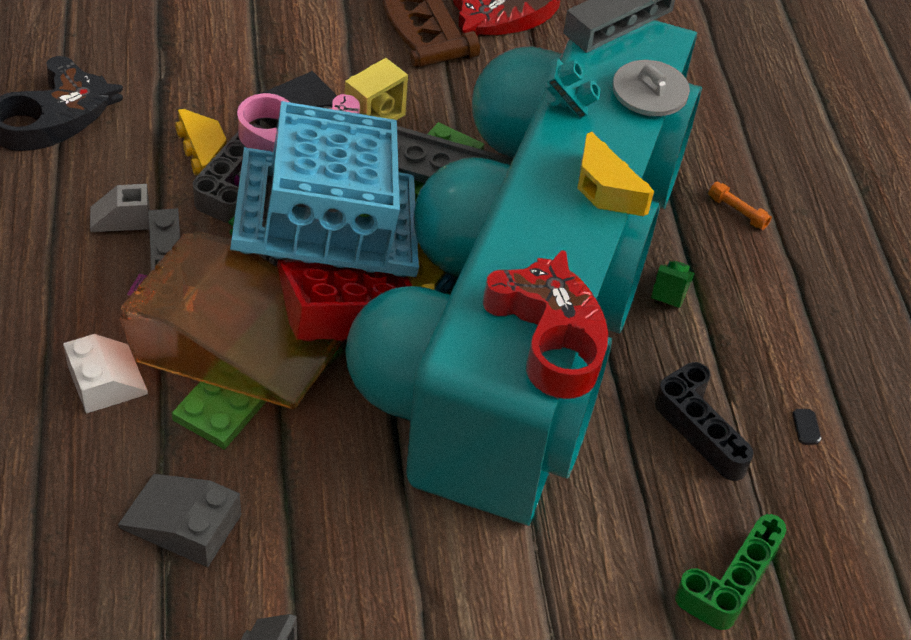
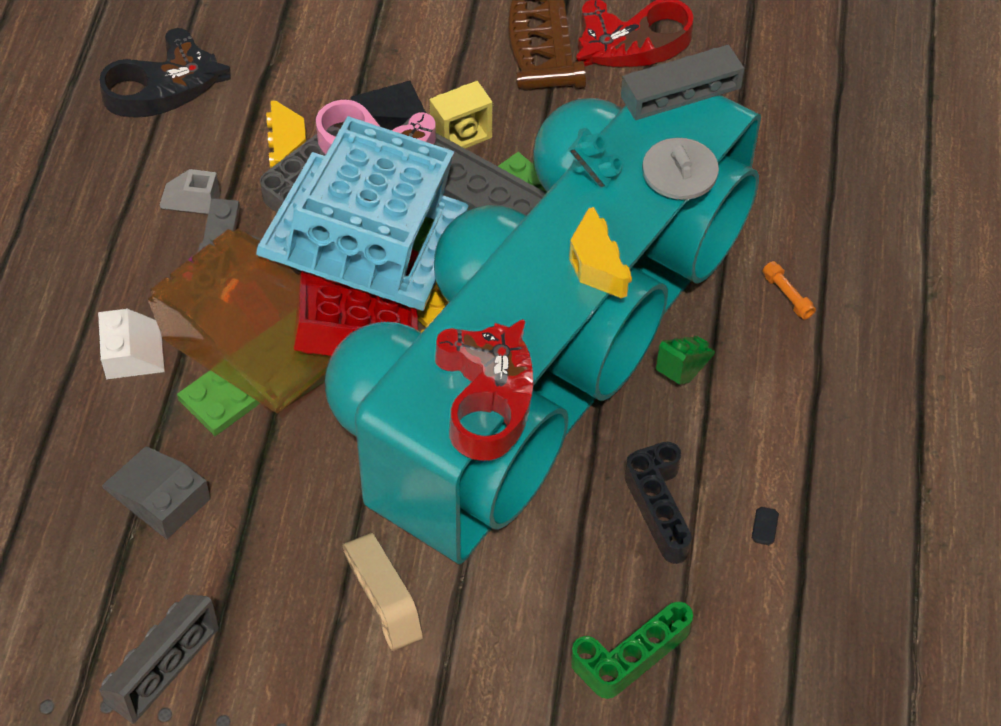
camera: 20 degrees right, 5 degrees up
(467, 566) = (384, 590): none -> tan beam

